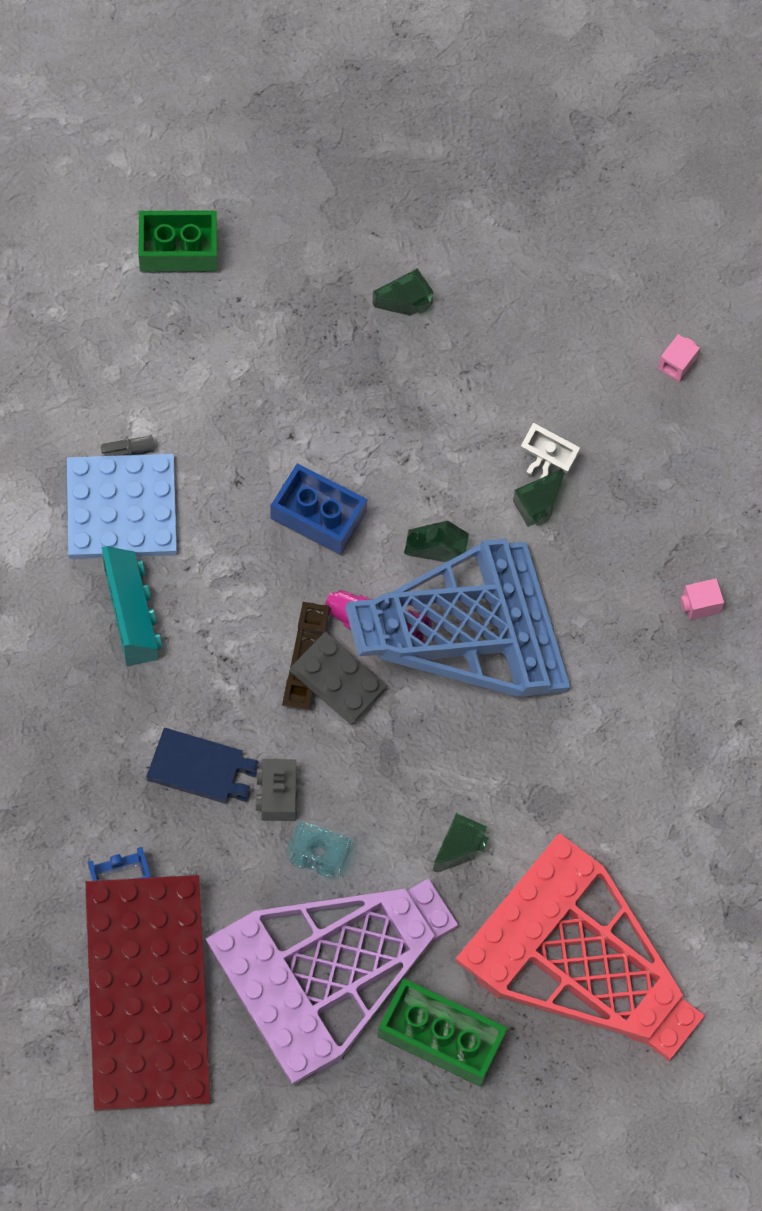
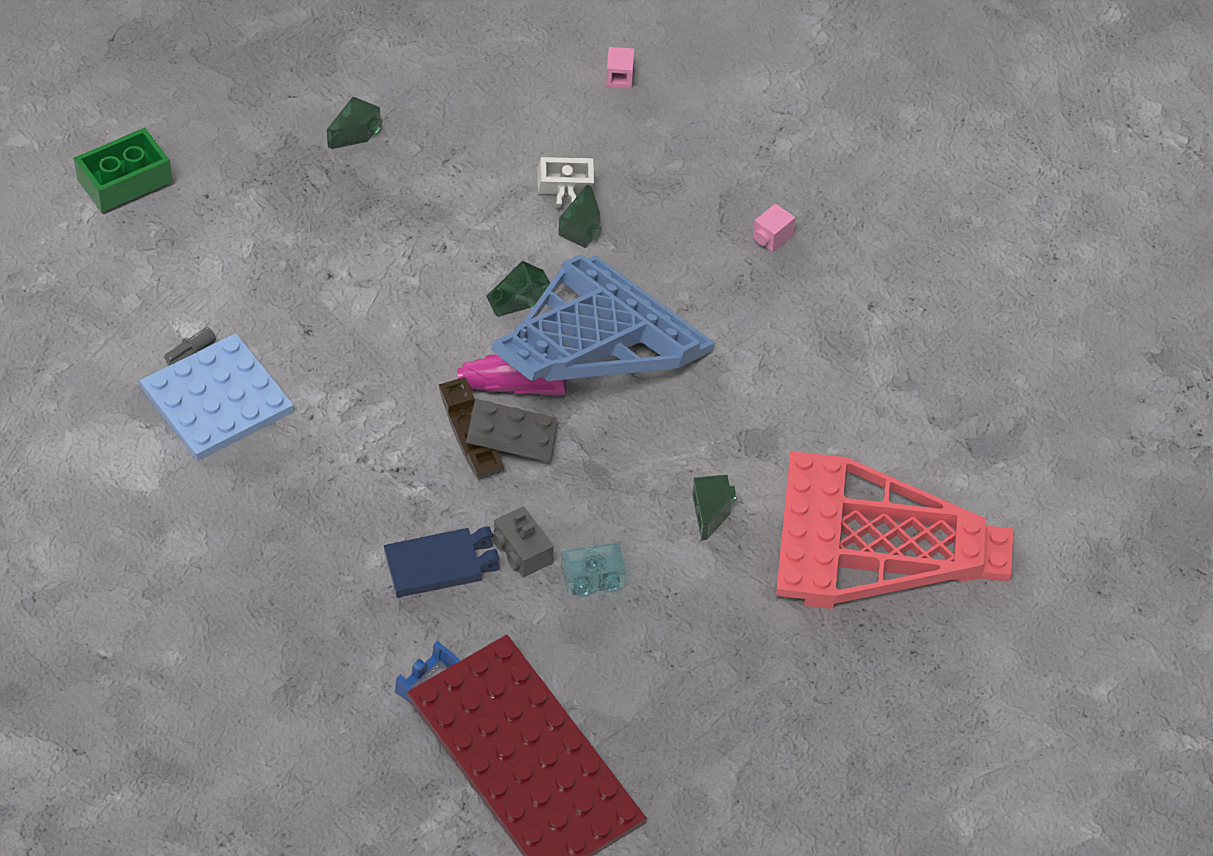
camera: 30 degrees left, 15 degrees down
(130, 605) = (283, 465): teal slope -> none
(277, 1000) = (646, 701): lavender wing -> none
(318, 508) = (399, 311): blue brick -> none
(442, 1032) = (809, 651): green brick -> none

